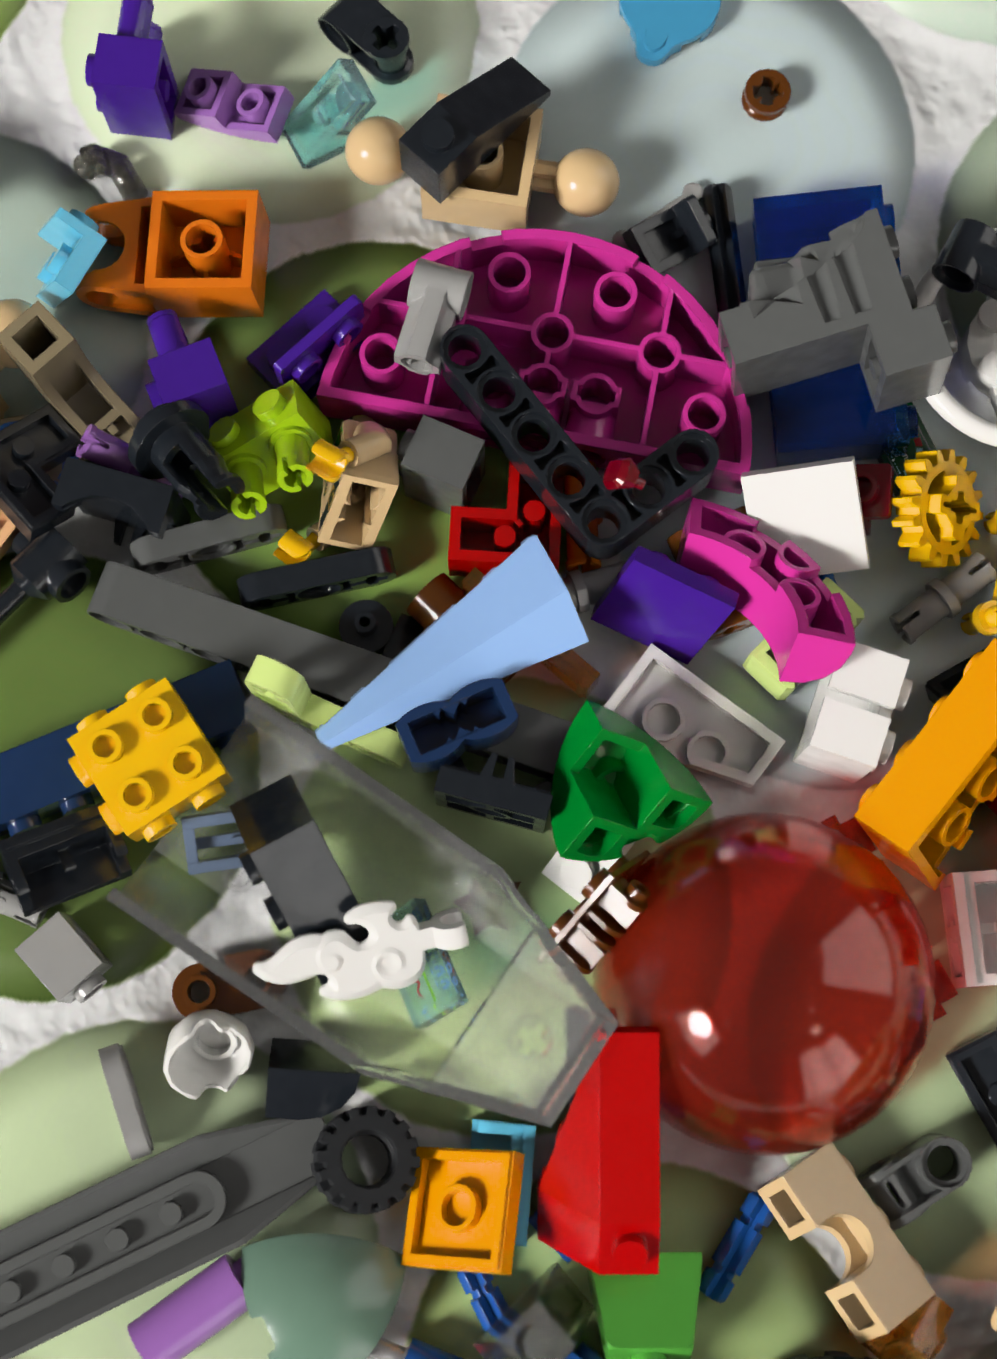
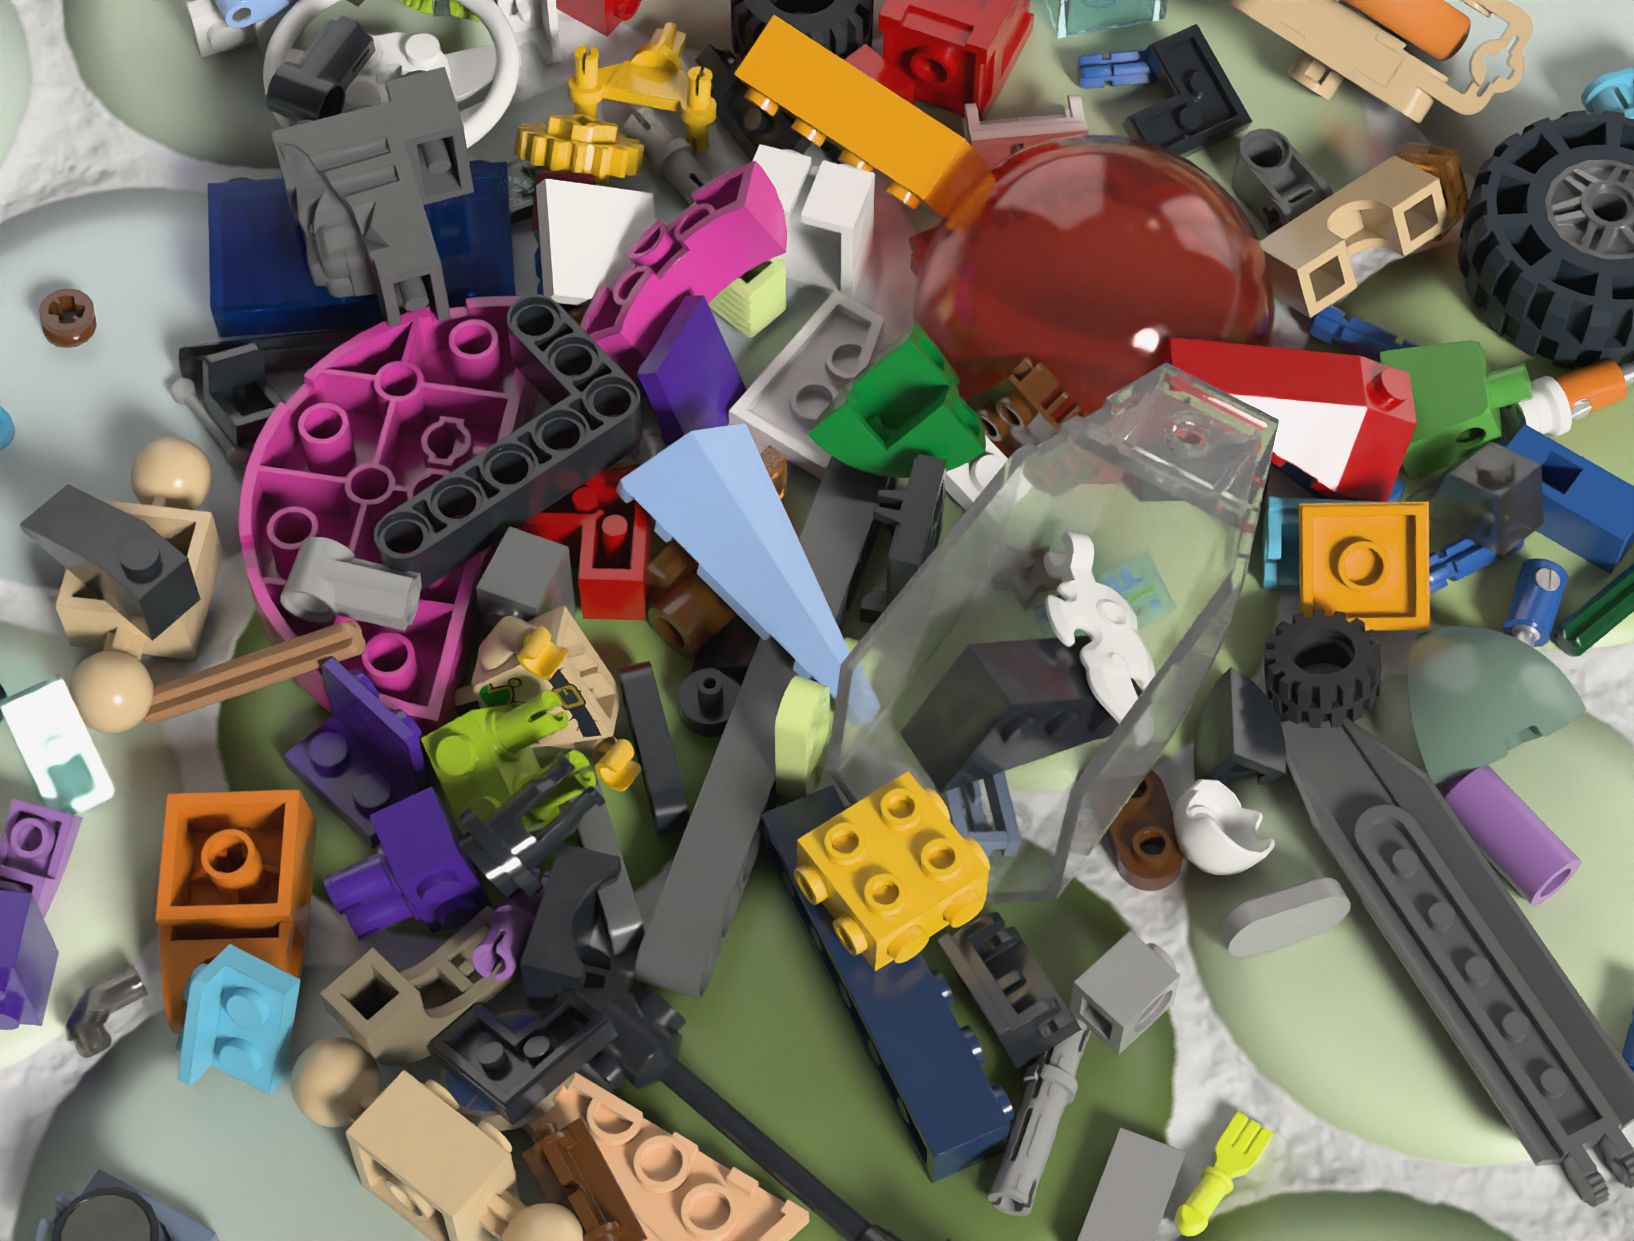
camera: 90 degrees left, 20 degrees down
(378, 255) = (255, 670): none -> medium nougat axle
(472, 720) = (843, 553): dark blue brick -> none
(623, 474) = (563, 371): dark red rock -> none

